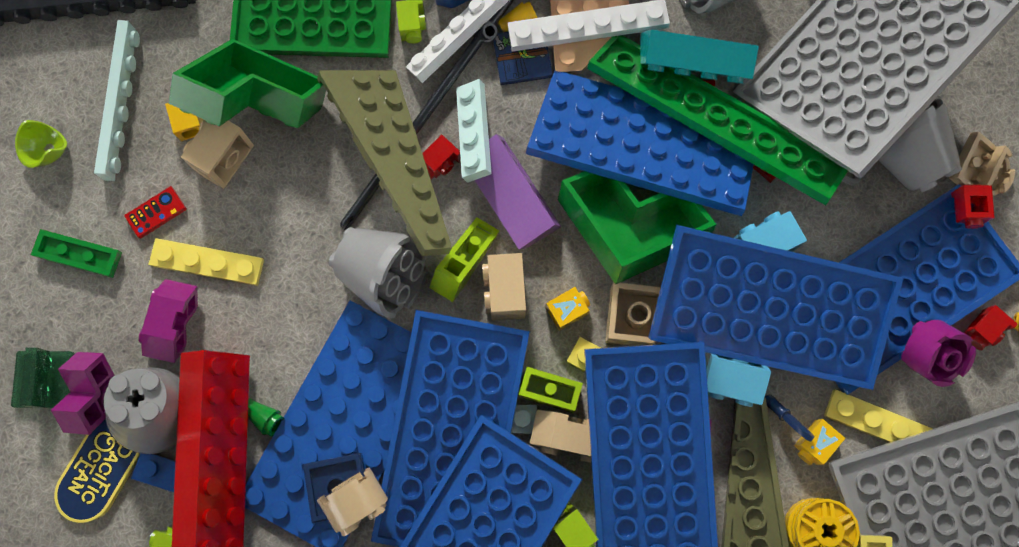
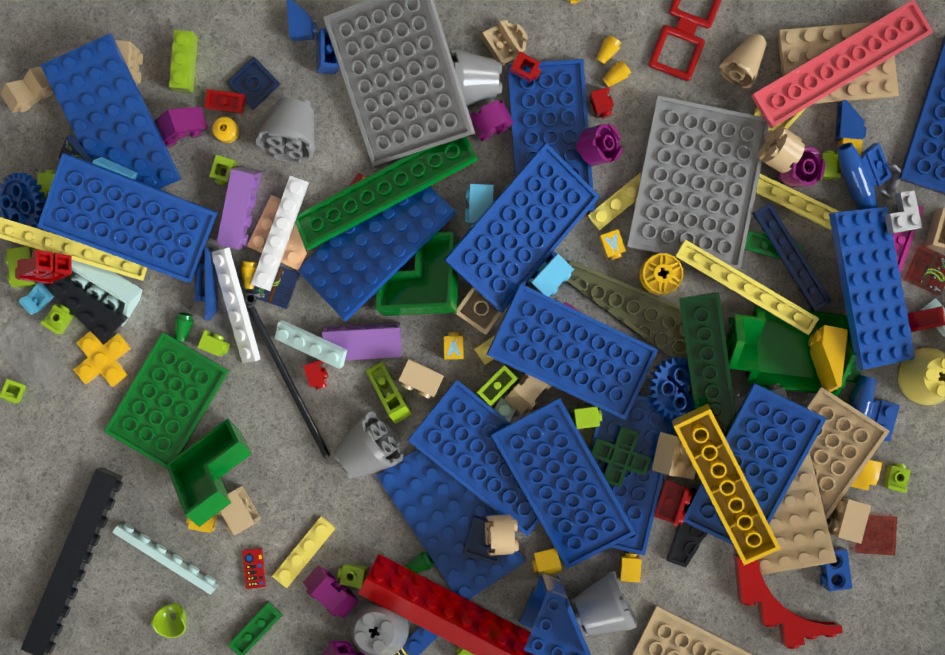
camera: 60 degrees left, 10 degrees up
(213, 338) = (359, 573): none -> lime brick
(385, 136) = (282, 401): olive wing -> none
(698, 54) = (339, 177): teal slope -> none
(785, 414) = (588, 254): dark blue piece -> none
(880, 199) = (491, 119): none -> magenta brick

